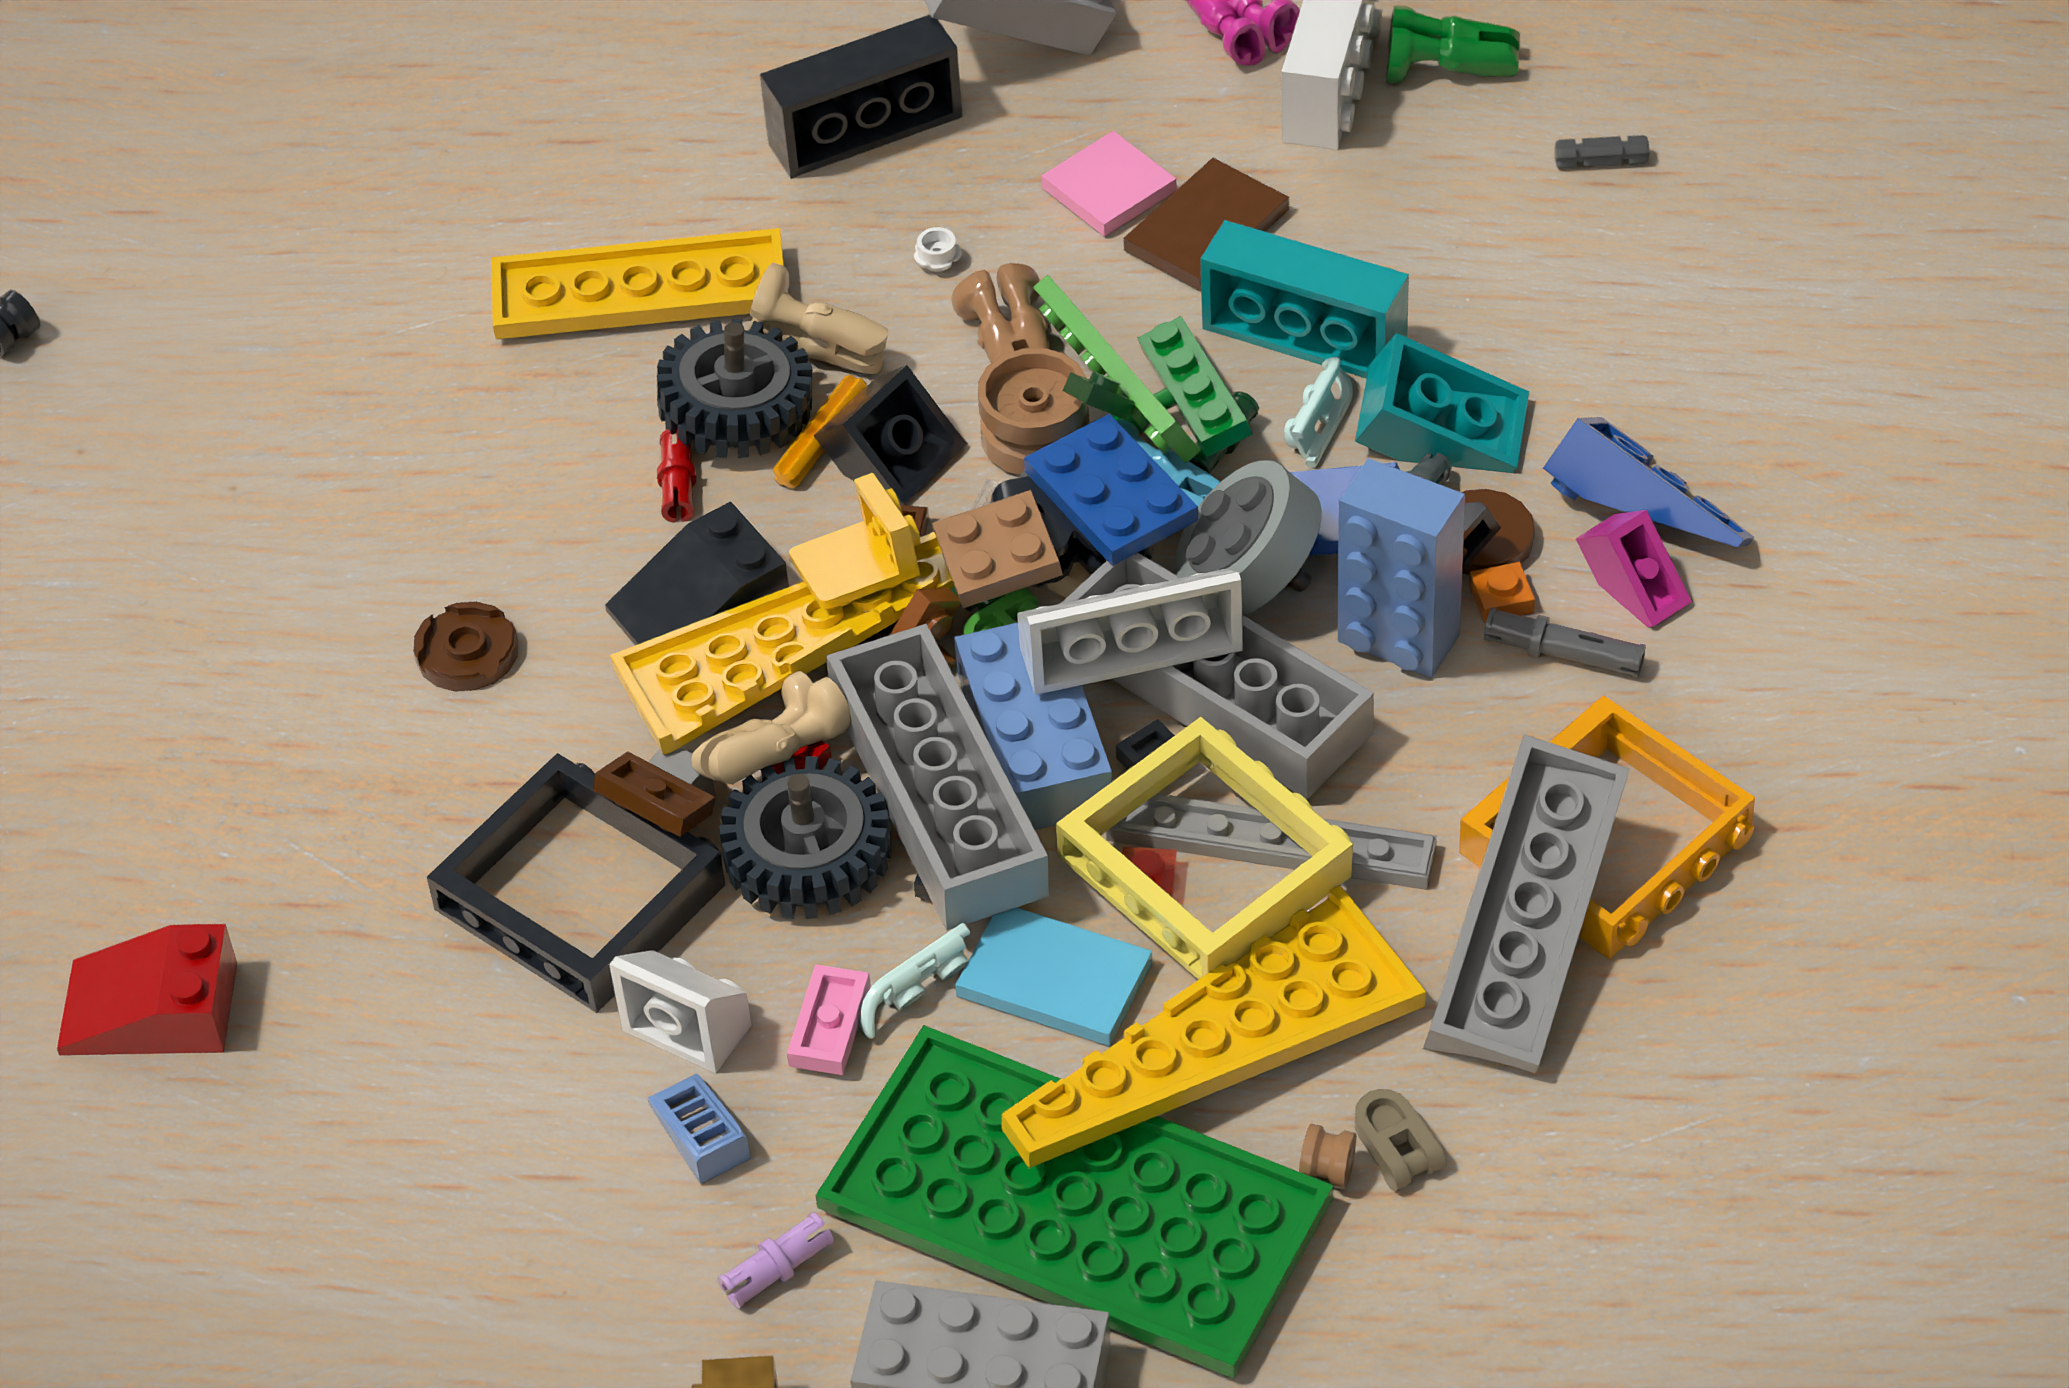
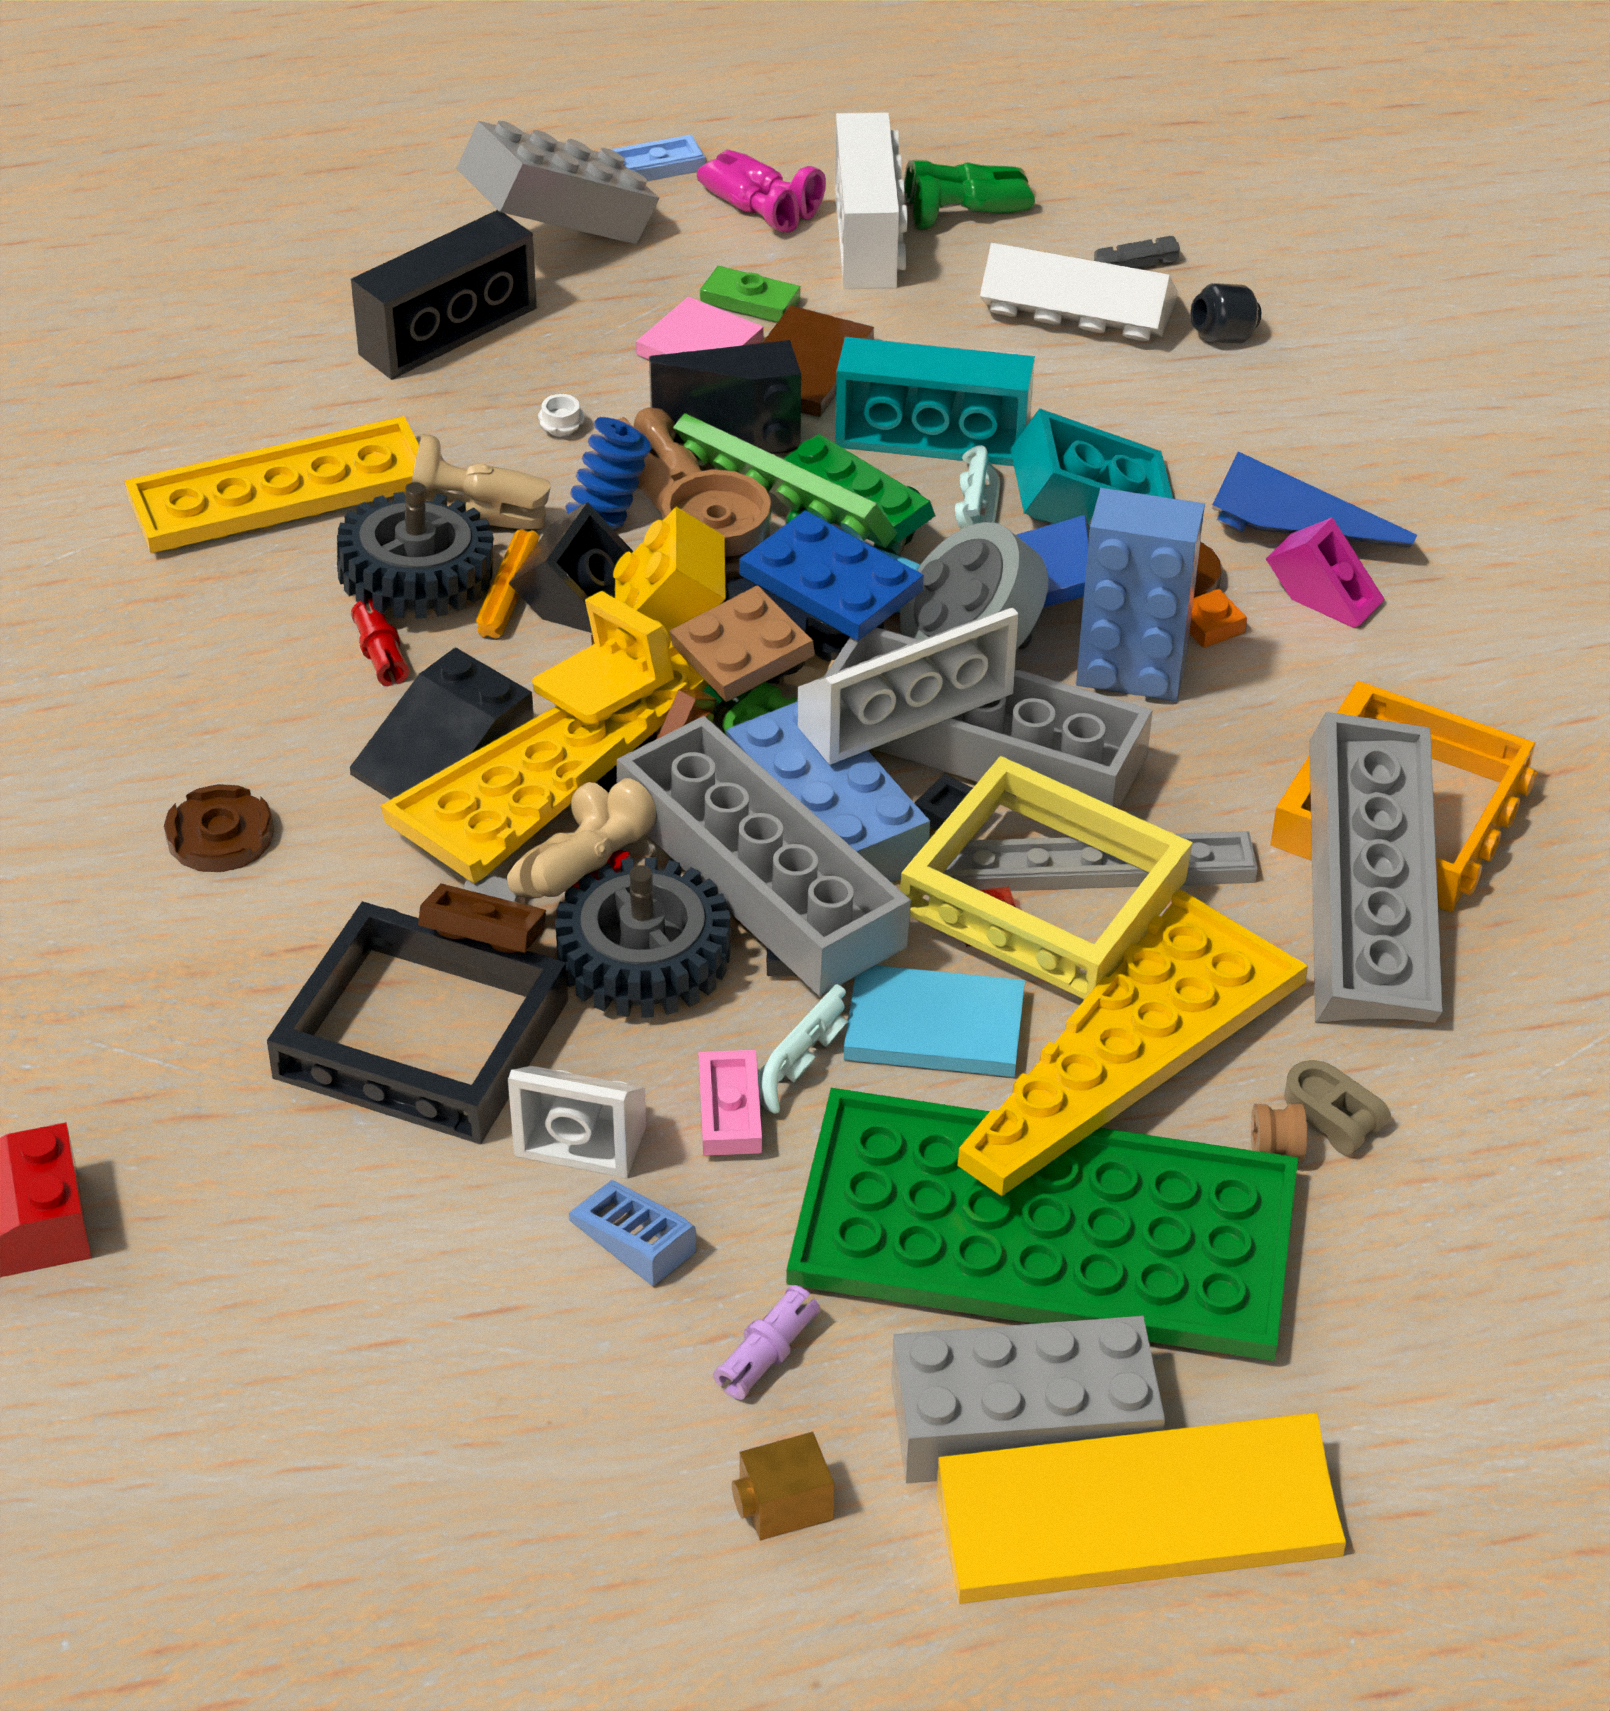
camera: 20 degrees left, 5 degrees down
(948, 331) = (611, 470): none -> blue piece
(959, 462) = (673, 571): none -> yellow brick
(1099, 393) = (788, 495): dark green plate -> none
(1103, 262) = (736, 389): none -> black slope
(1179, 135) = (749, 293): none -> bright green plate
(1515, 191) = (1078, 291): none -> white slope
(1564, 642) = (1288, 648): dark grey pin -> none
(1661, 240) = (1225, 313): none -> black head

